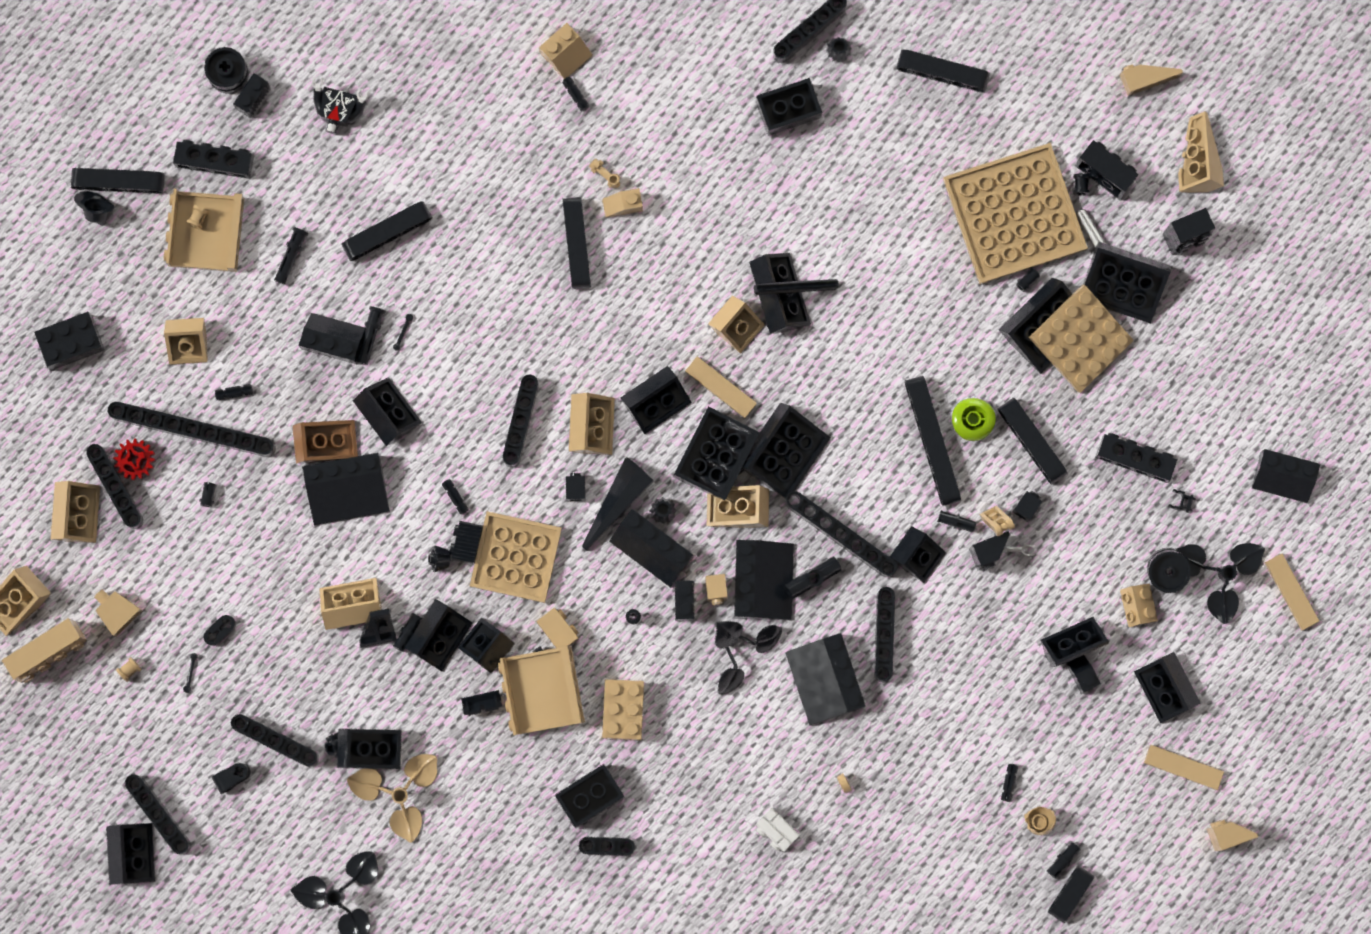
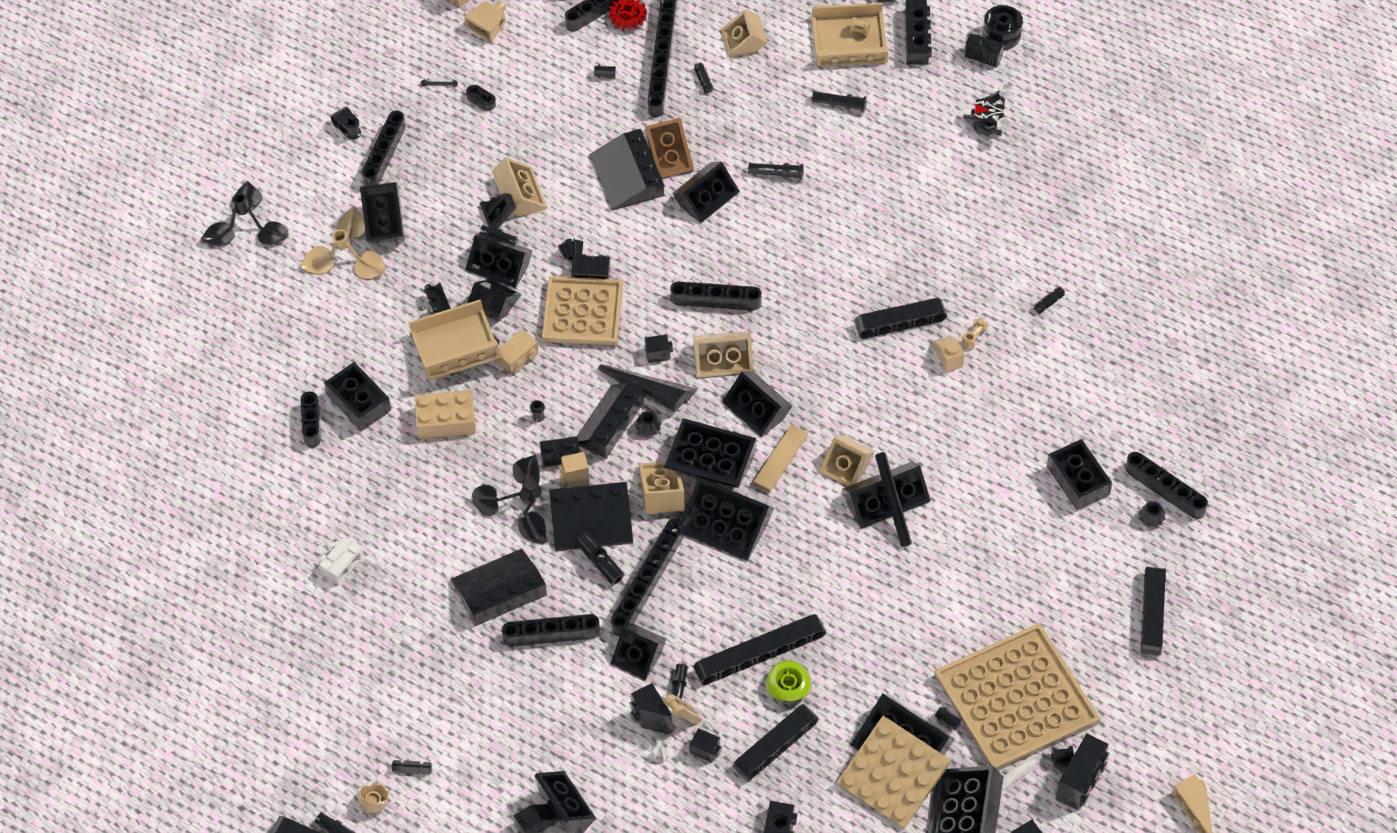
camera: 85 degrees right, 25 degrees down
(128, 669) = (436, 36): tan bush -> none
(130, 853) = (269, 60): black slope -> none
(149, 810) = (306, 74): black beam -> none
(332, 338) = (768, 139): black slope -> none
(386, 231) = (879, 168): black beam -> none
(409, 318) = (799, 199): black hinge -> none
(455, 496) = (634, 256): black axle -> none
(565, 51) = (1089, 283): tan slope -> none
(844, 783) = (394, 613): tan tile -> none

